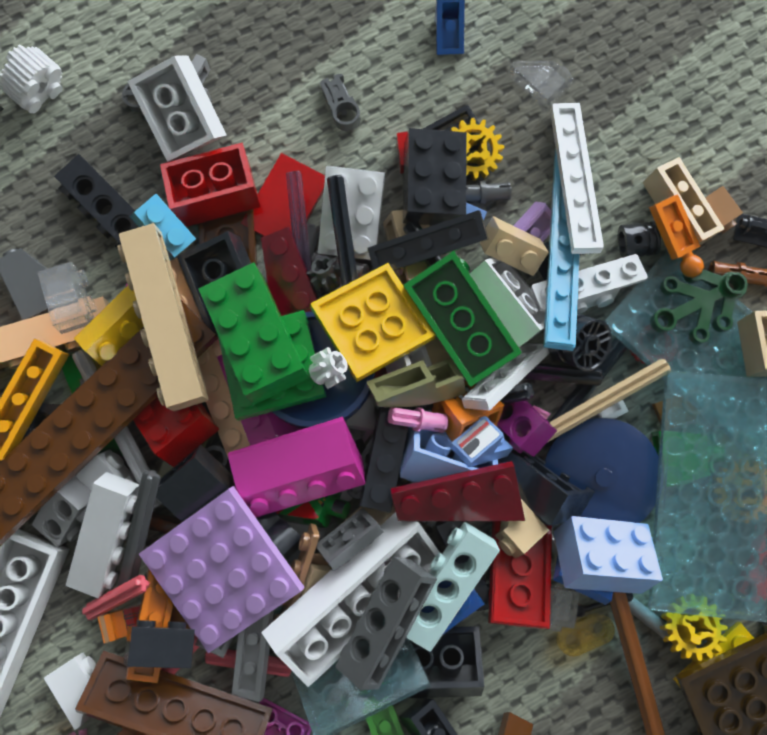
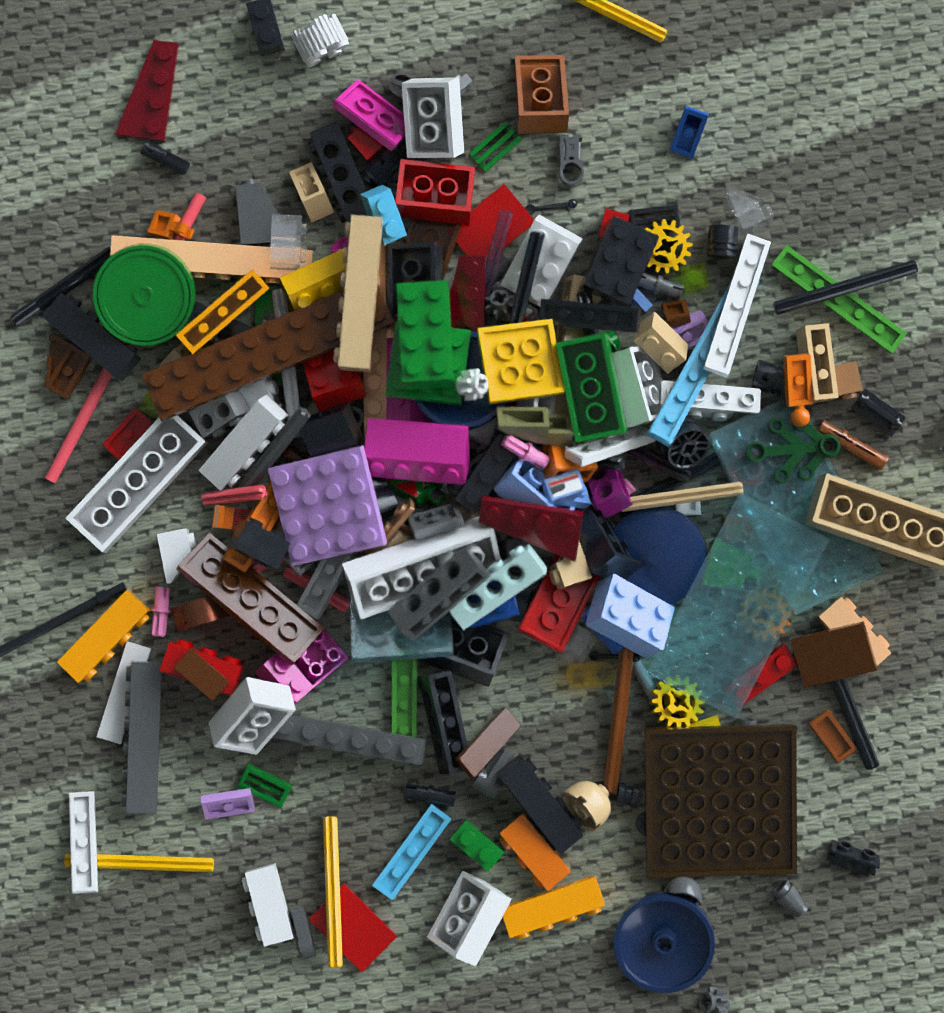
camera: 25 degrees right, 5 degrees up
(82, 239) = (311, 192): none -> tan arch
(113, 133) = (372, 114): none -> dark pink tile
(120, 164) = (364, 143): none -> red brick
(144, 189) = (380, 174): none -> black hinge
(267, 100) = (511, 132): none -> green tile
(284, 50) = (541, 94): none -> dark orange slope
(359, 146) = (572, 203): none -> black hinge
(513, 212) = (676, 312): none -> reddish brown tile
(516, 170) = (694, 277): none -> clear neon green plate
(530, 121) = (722, 241): none -> black piece
(673, 134) = (847, 306): none -> bright green plate
(676, 116) = (845, 287): none -> black axle

